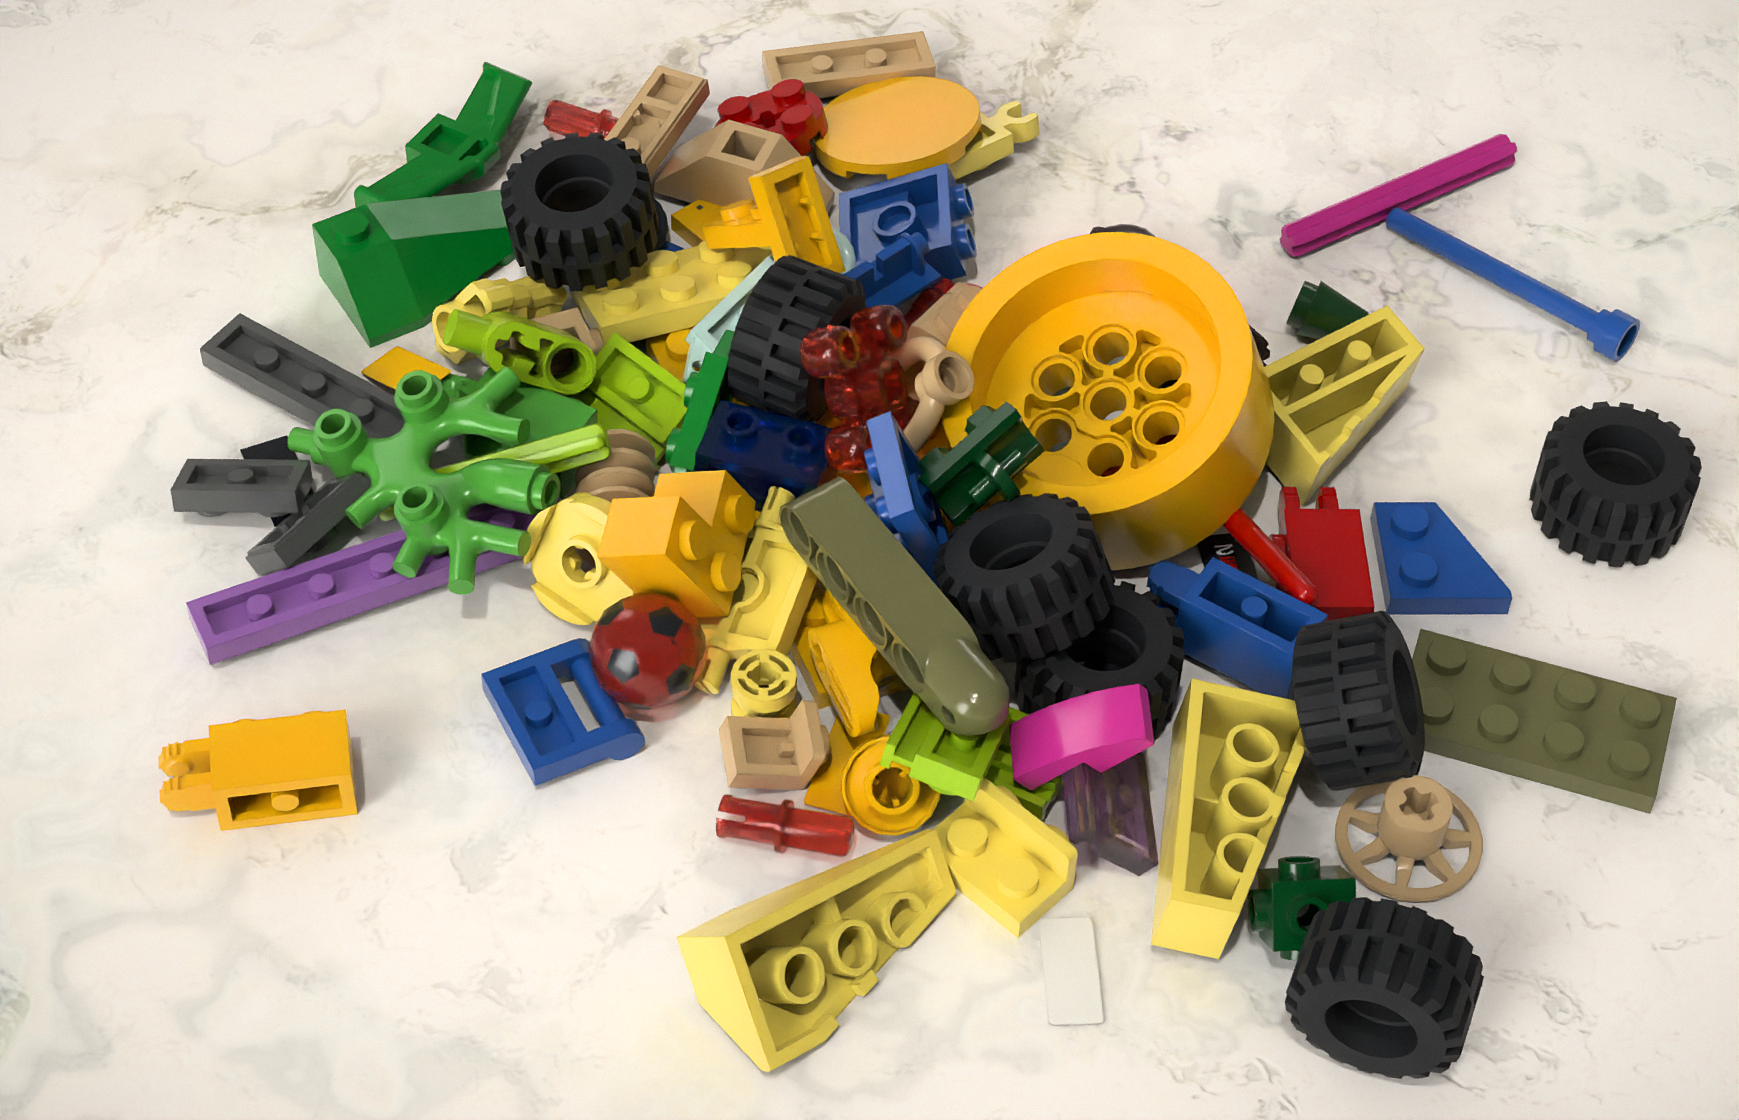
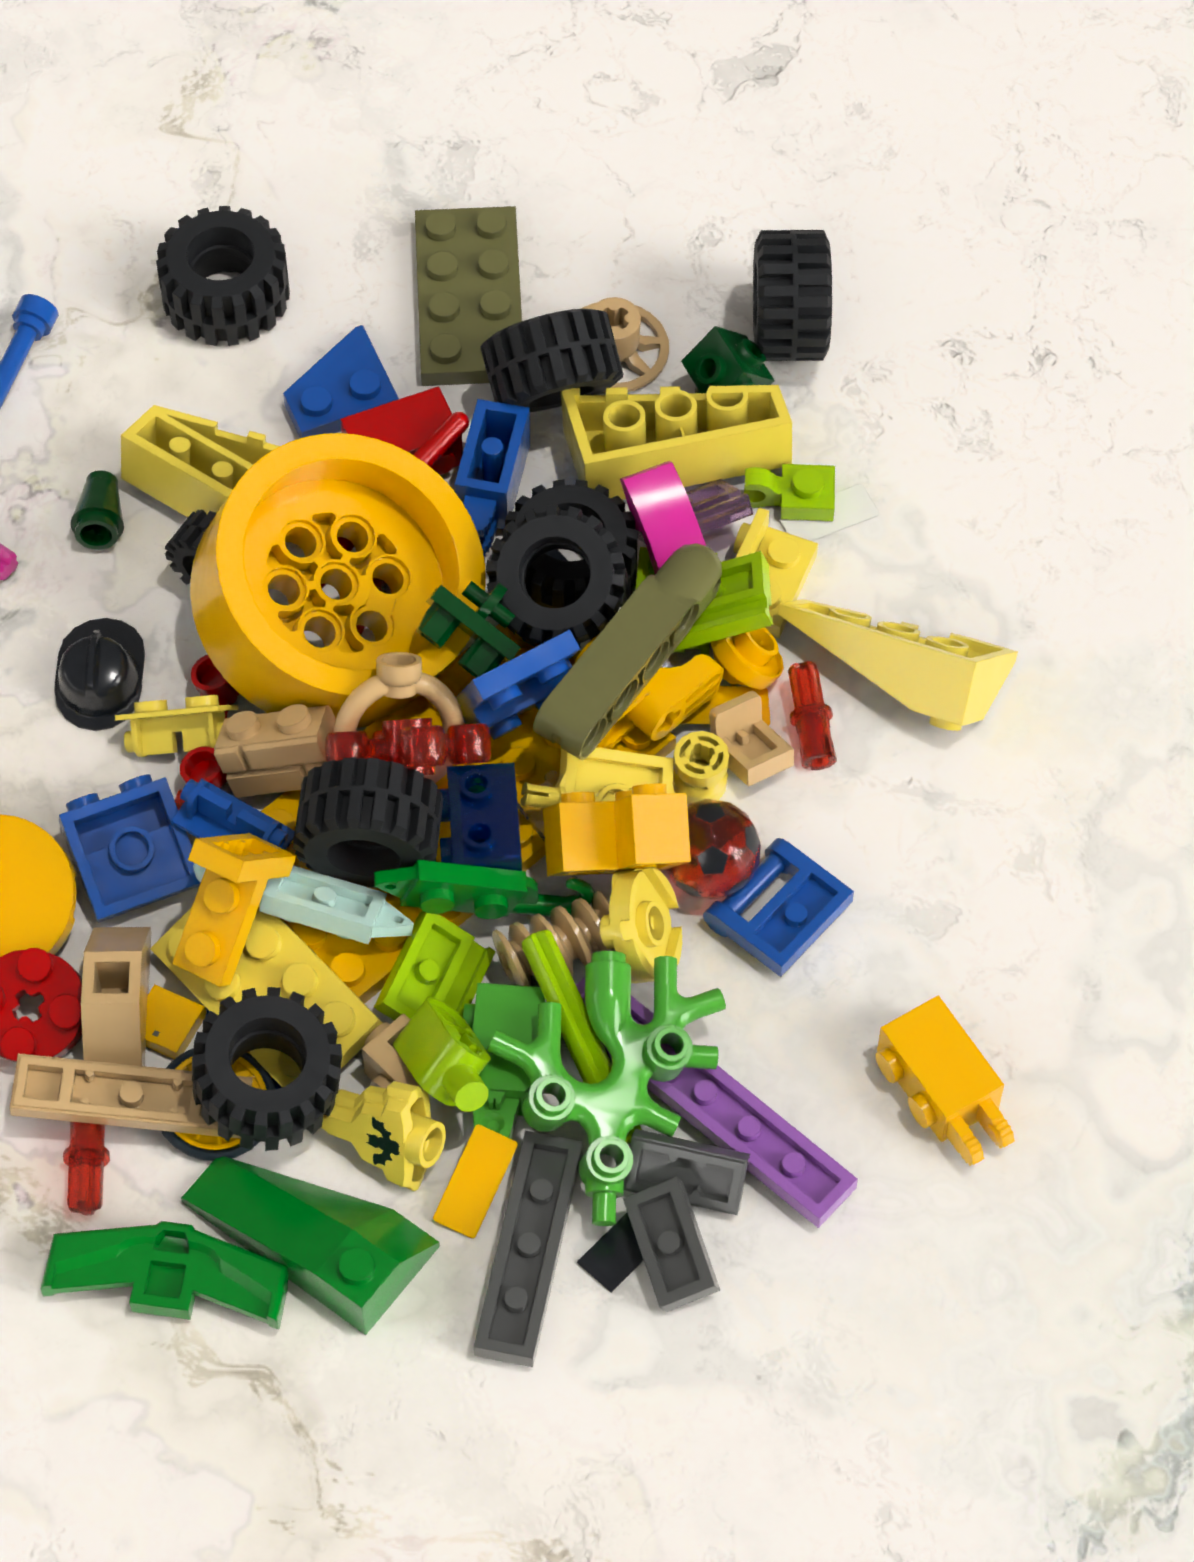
camera: 110 degrees left, 10 degrees up
(1109, 940) = (801, 491): none -> lime plate

